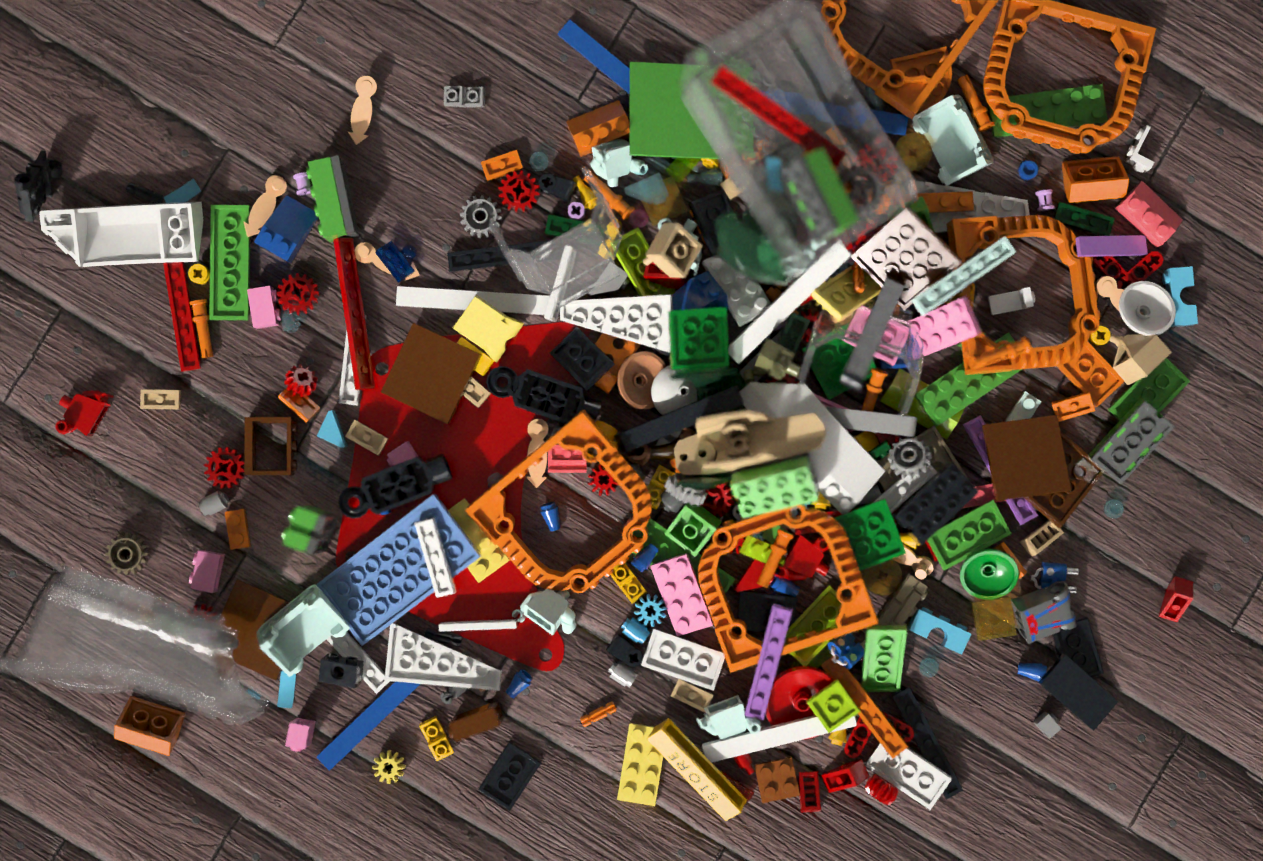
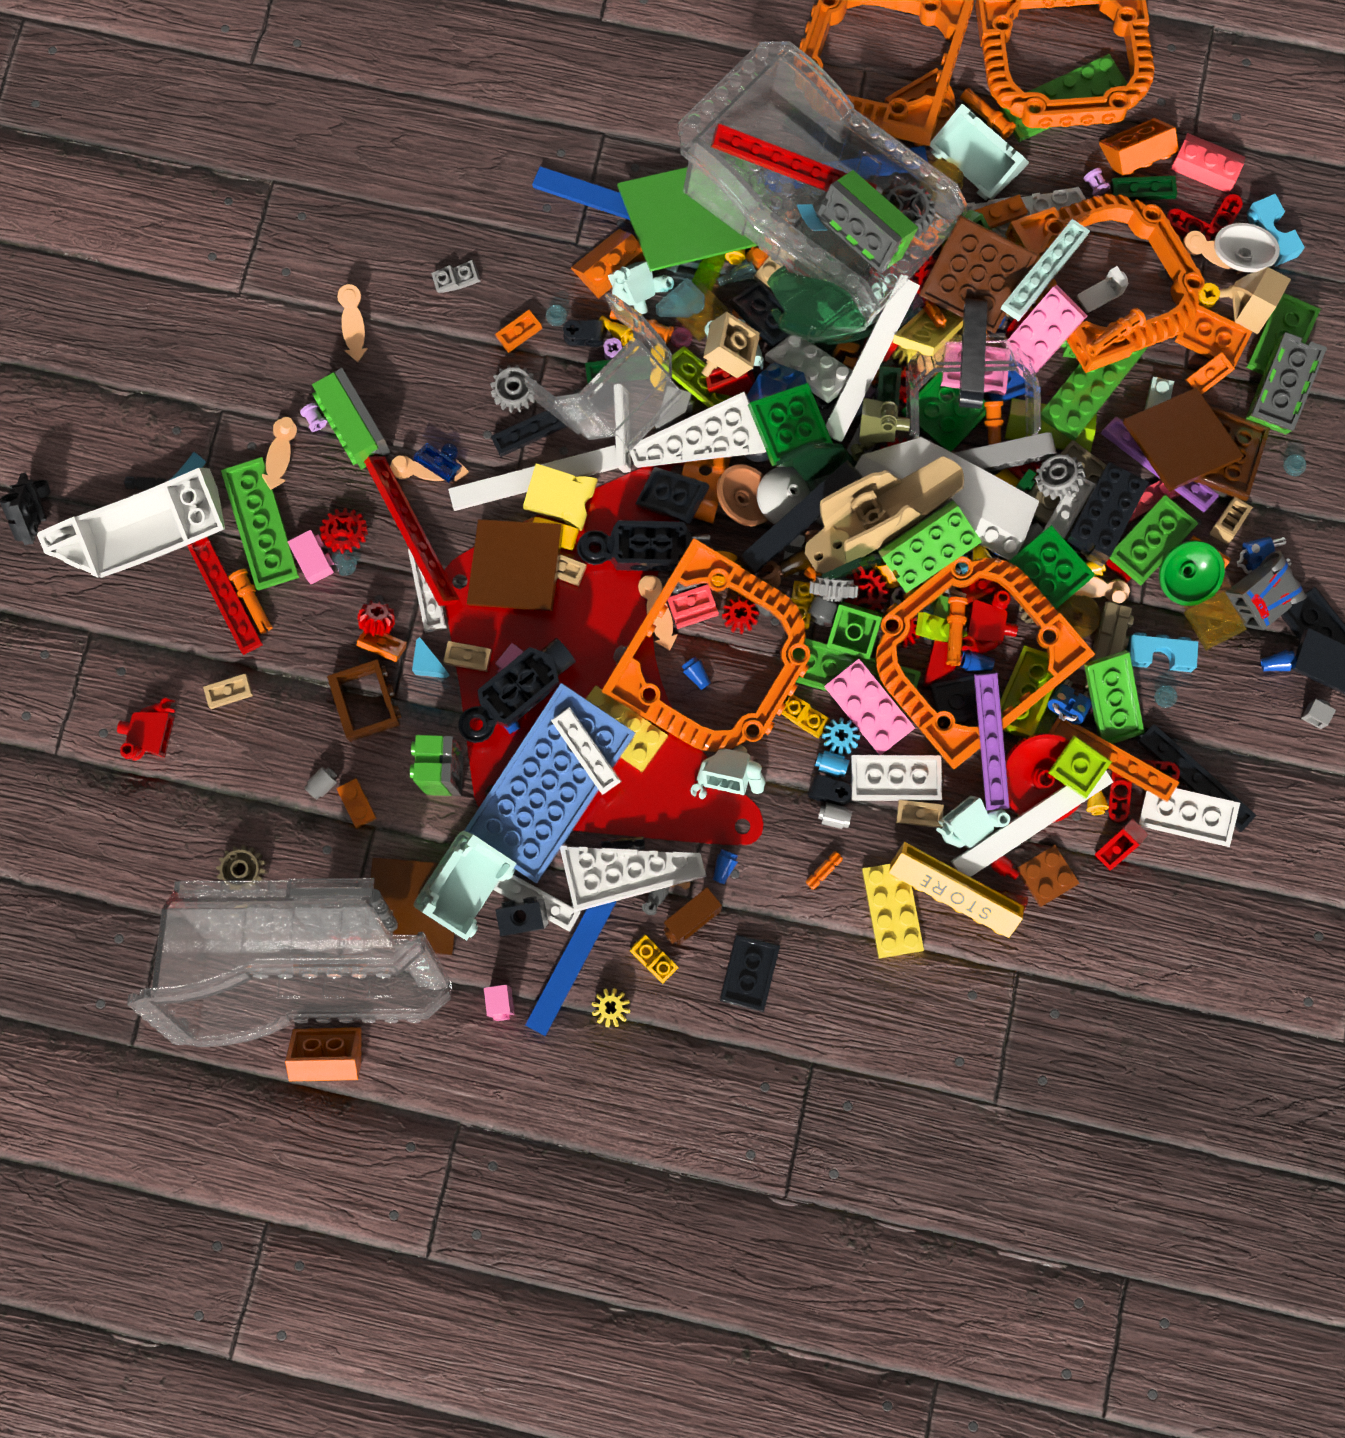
camera: 15 degrees left, 10 degrees down
(202, 276) = (234, 550): yellow wheel -> none
(206, 571) = (336, 857): bright pink brick -> none
(230, 474) = (317, 747): red gear -> none
(286, 690) = (467, 962): medium azure sticker -> none
(287, 229) = (310, 470): blue slope -> none
(478, 625) = (657, 816): white tile -> none
(528, 193) = (555, 349): red gear -> none
(644, 558) = (813, 682): blue cone -> none
(813, 808) = (1086, 888): red slope -> none
(881, 789) = (1167, 843): red gear -> none
(1028, 170) = (1067, 160): blue tile -> none
(1111, 246) = (1183, 201): medium lavender tile -> none
(1138, 161) = (1173, 112): white bracket -> none

